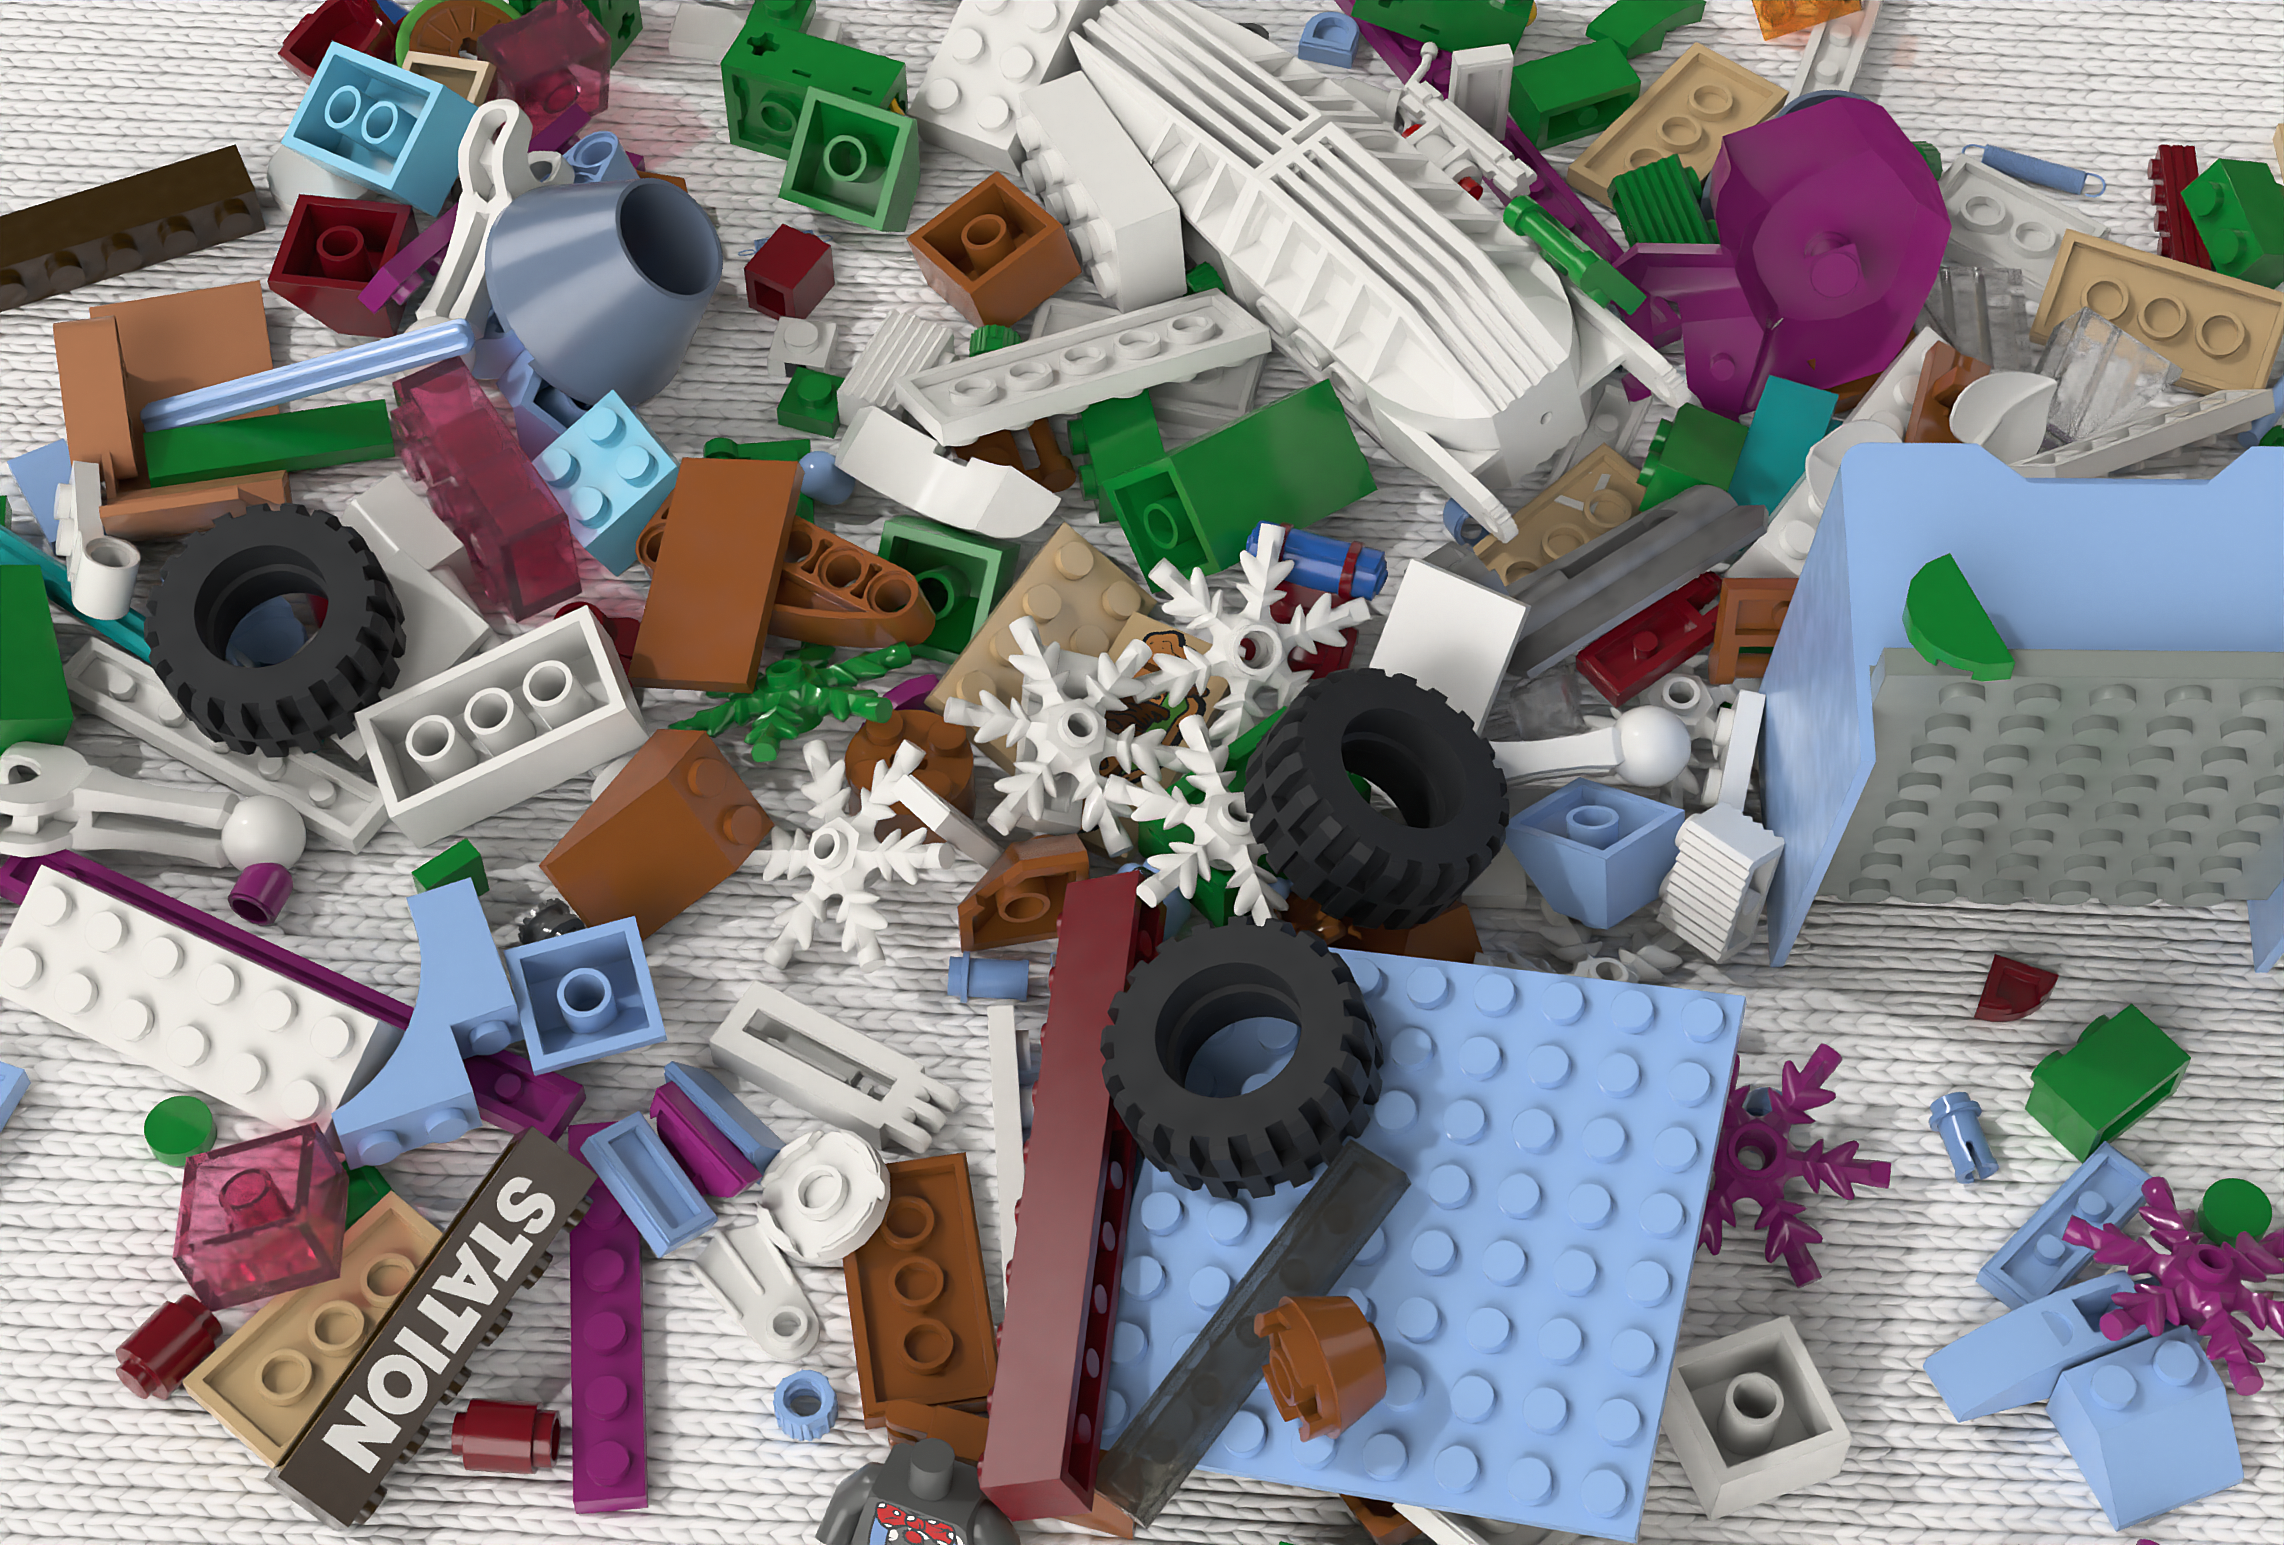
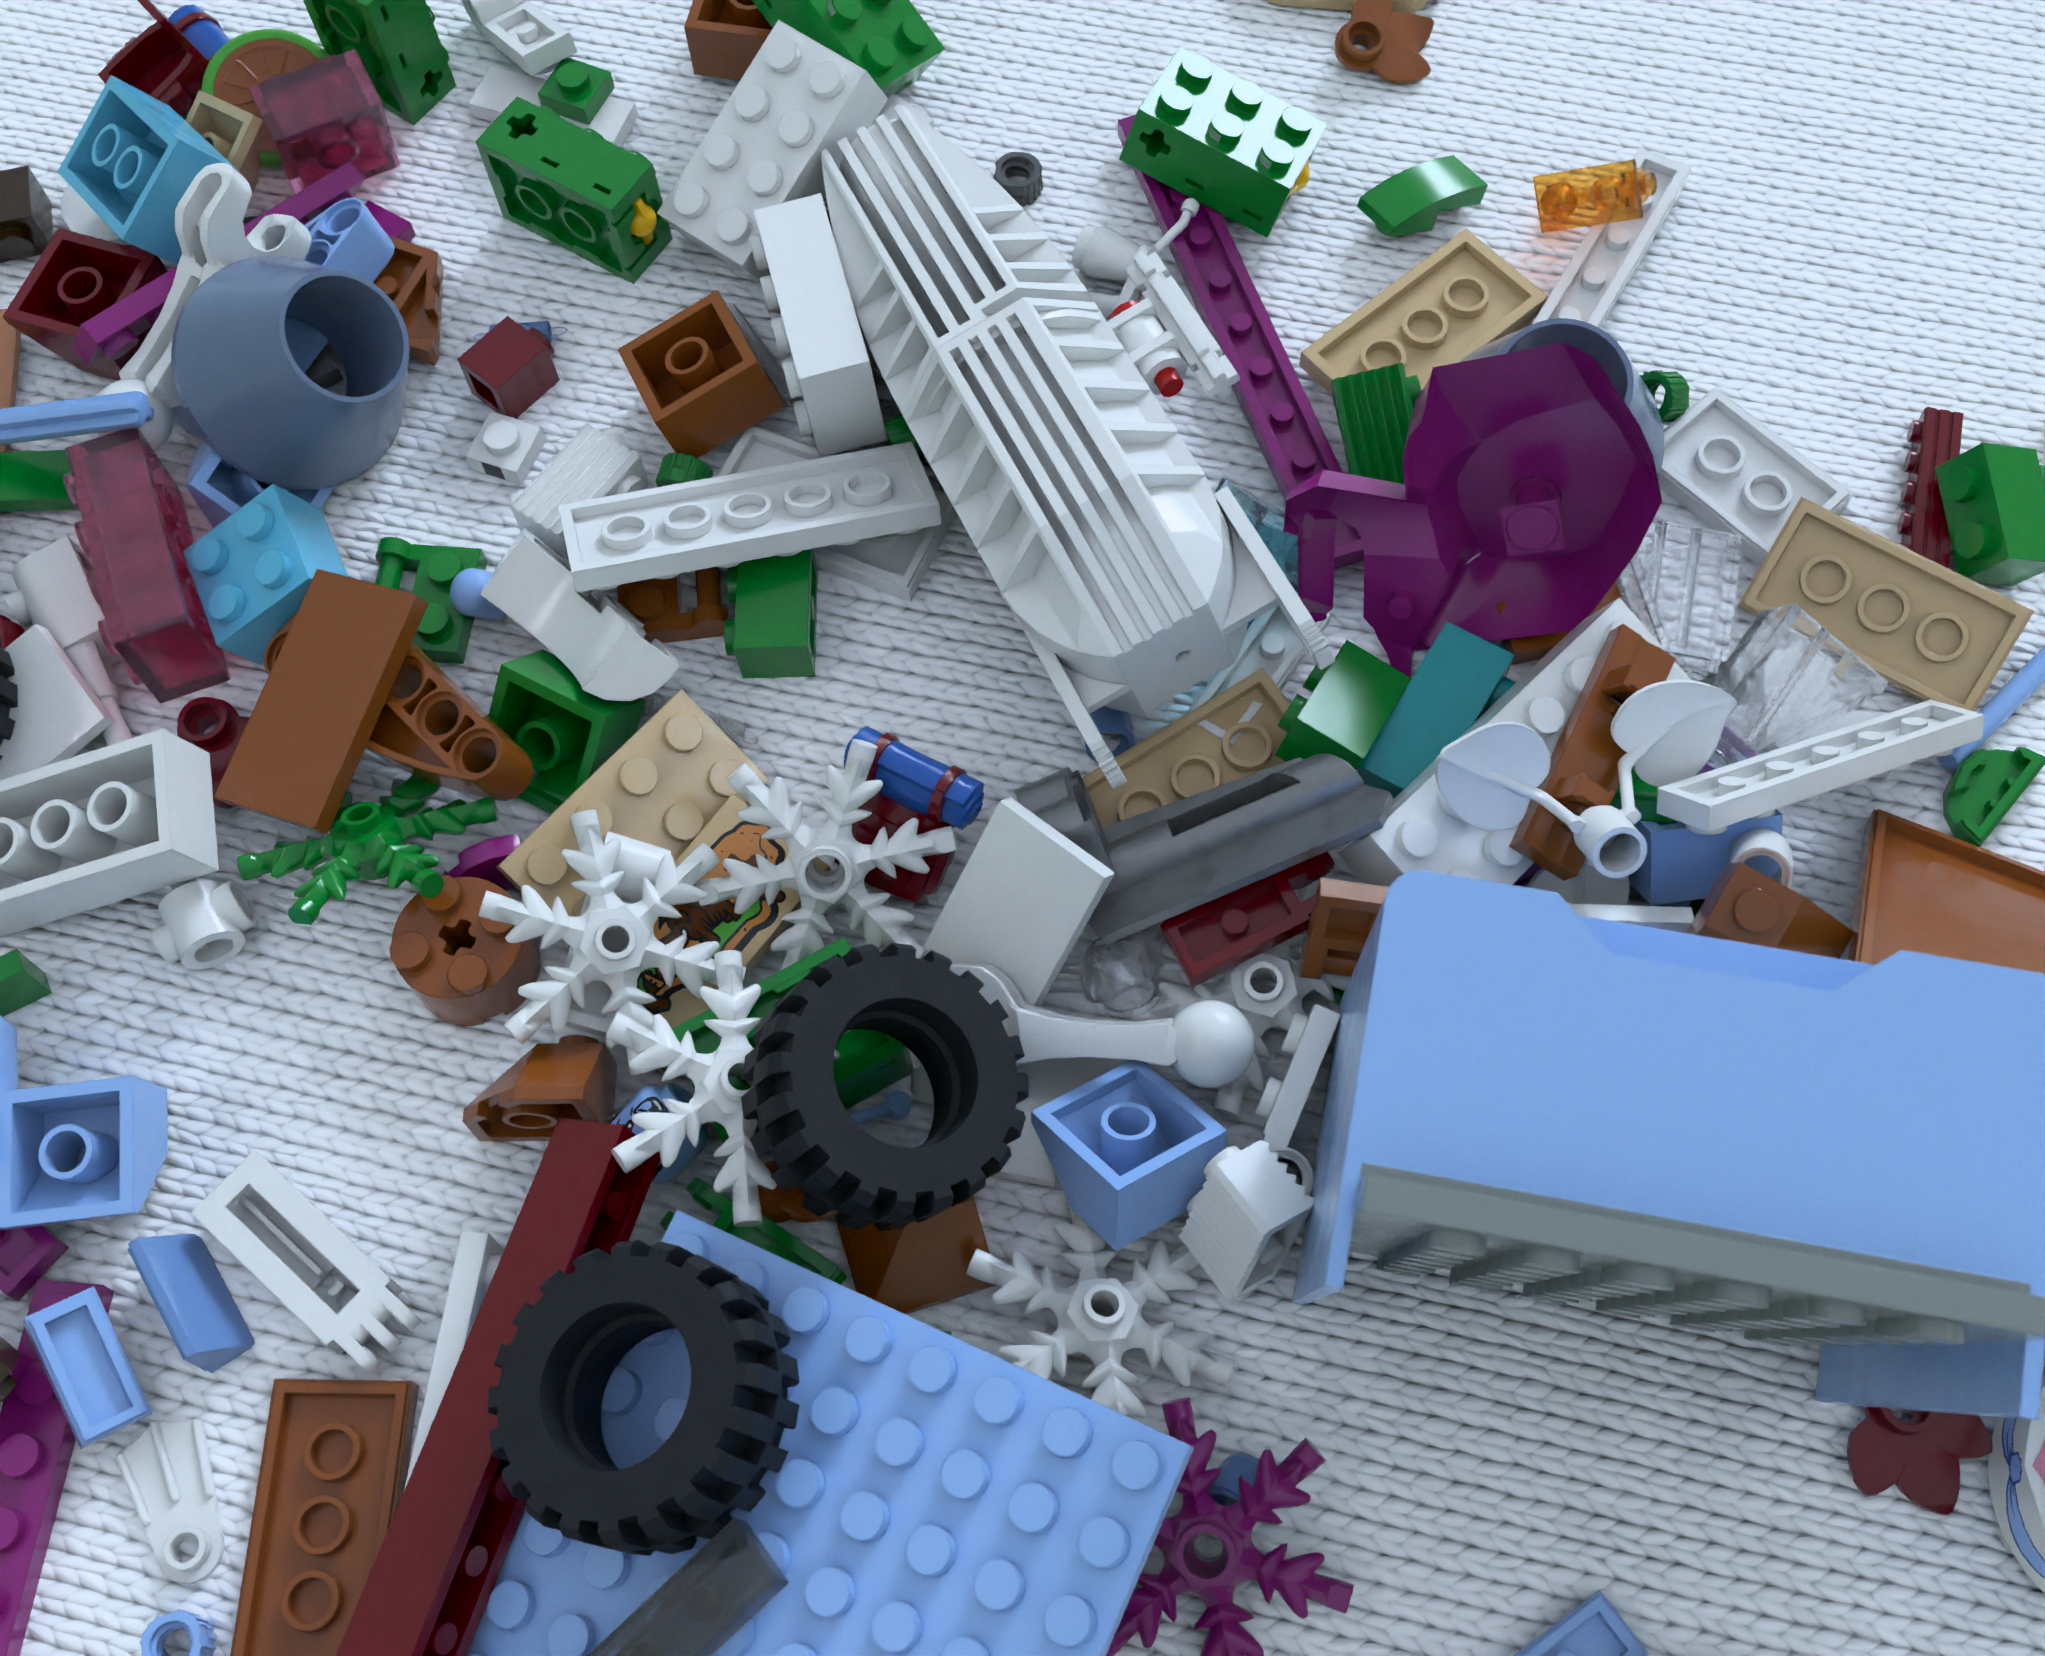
camera: 15 degrees right, 10 degrees up
(550, 921) = (83, 1056): dark grey bush -> none
(658, 834) = (188, 984): dark orange slope -> none
(700, 1146) = (145, 1333): magenta tile -> none
(811, 403) = (490, 509): green plate -> none
(824, 1195) = (255, 1410): white tile -> none
(845, 856) = (364, 1035): white piece -> none
(853, 161) = (588, 262): green slope -> none
(947, 821) = (461, 1023): white tile -> none
(987, 978) = (486, 1182): medium blue pin -> none
(1208, 494) = (877, 666): green slope -> none
(1330, 40) = (1103, 179): light blue tile -> none
(1482, 85) = (1218, 266): white tile -> none
(1571, 255) = (1238, 486): green plate -> none
(1572, 93) = (1326, 269): green brick -> none
(1951, 625) = (1454, 1160): green tile -> none
(1963, 1136) = (1444, 1551): medium blue pin -> none
(2013, 990) = (1543, 1380): dark red tile -> none
(2036, 170) = (1788, 414): light blue piece -> none
(2105, 1081) = (1616, 1520): green brick -> none

